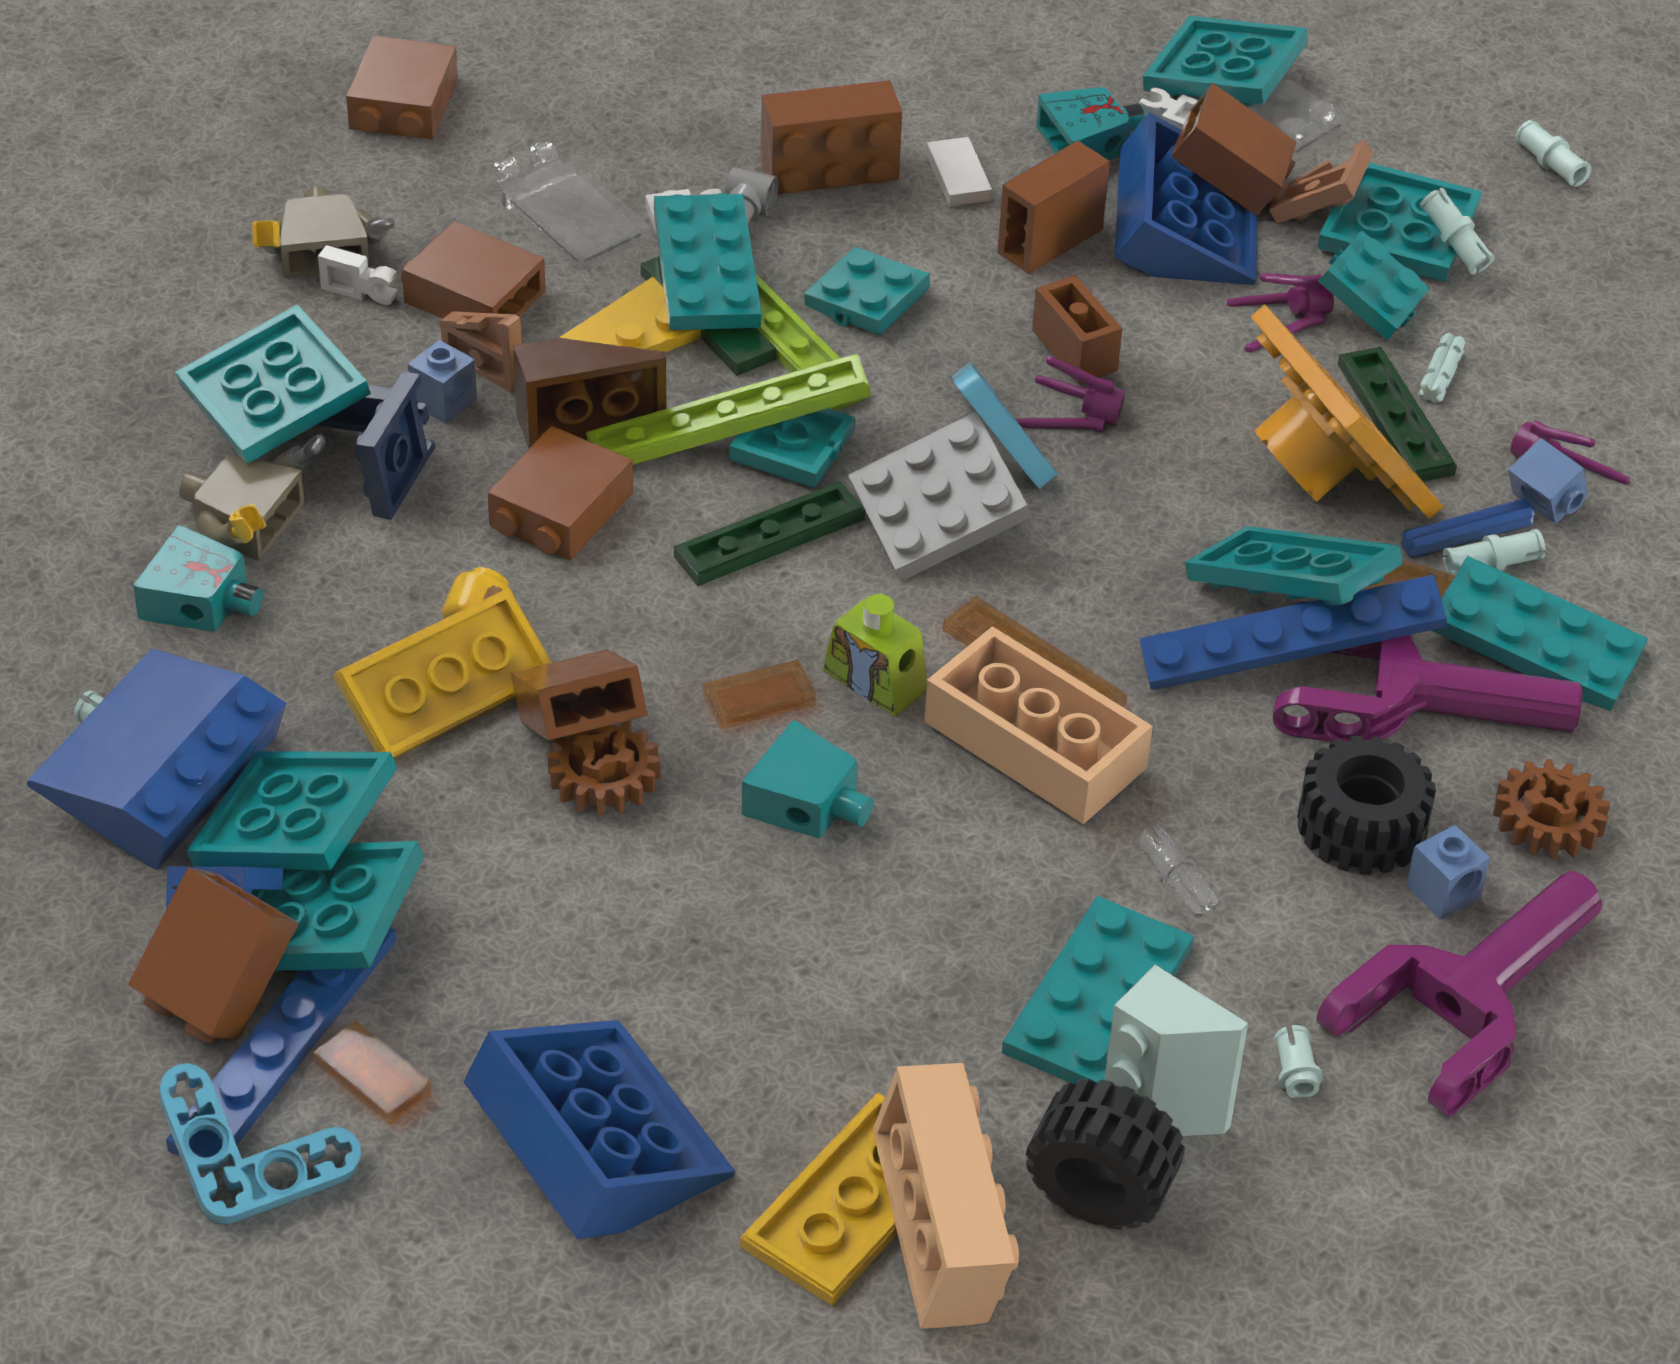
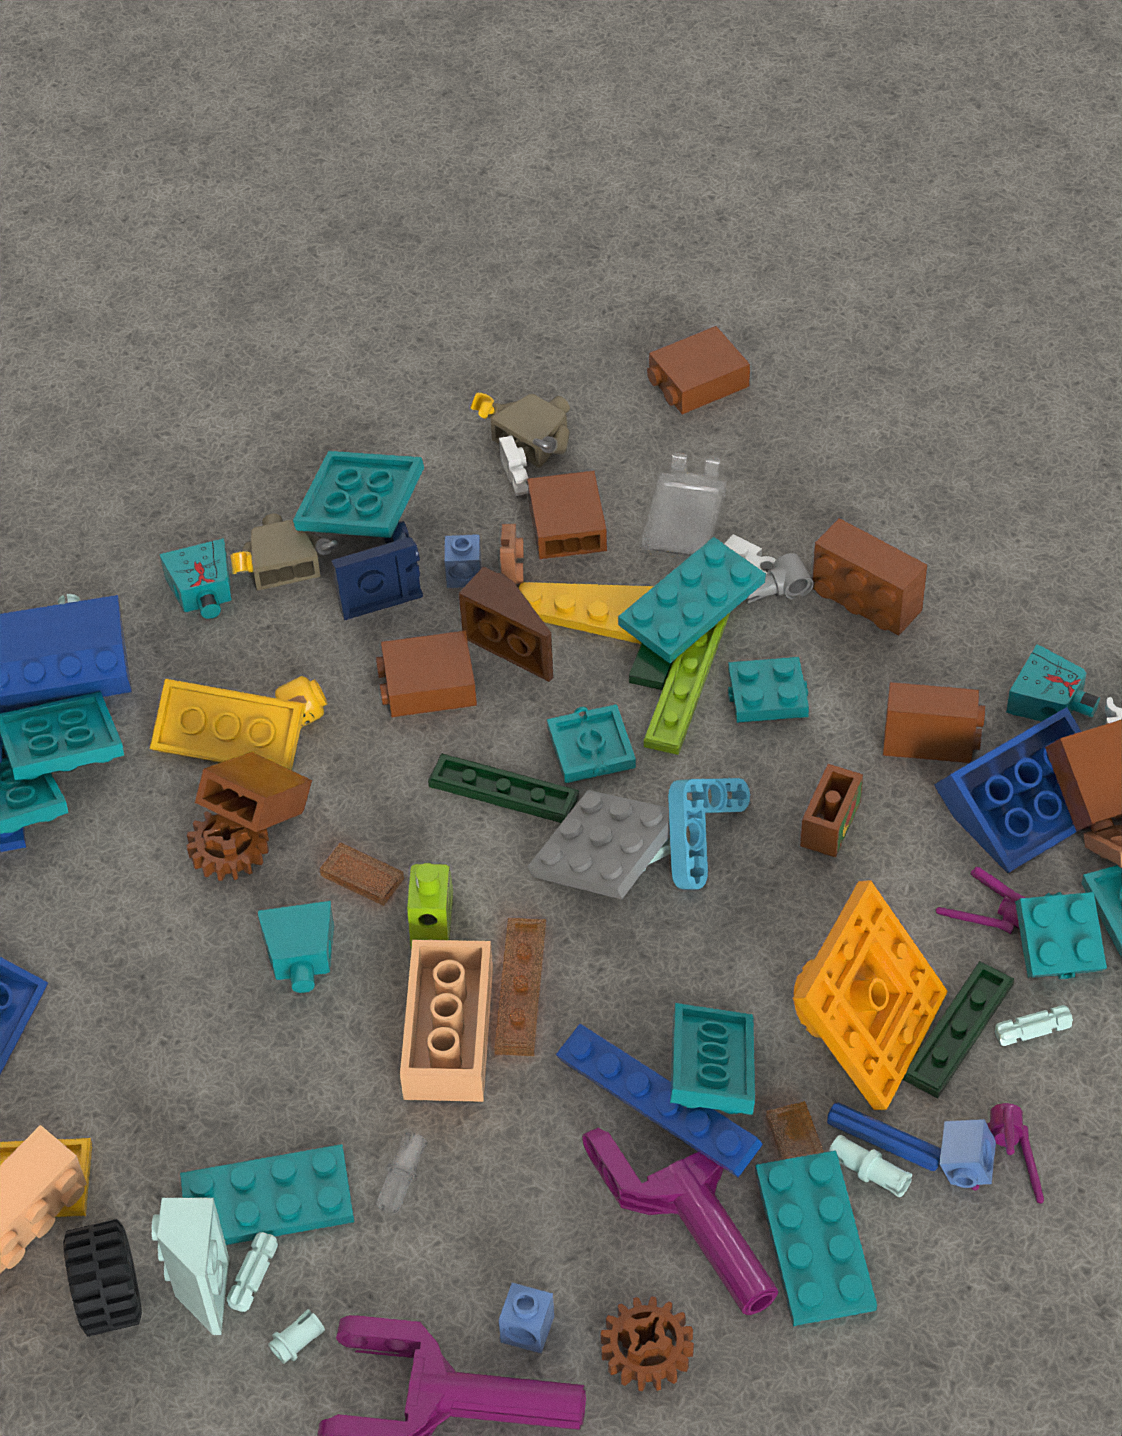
camera: 55 degrees right, 5 degrees up
(736, 411) = (569, 700): lime tile -> none
(959, 171) = (936, 657): white tile -> none
(1100, 401) = (787, 865): magenta plant -> none
(1361, 832) = (537, 1205): black tyre -> none

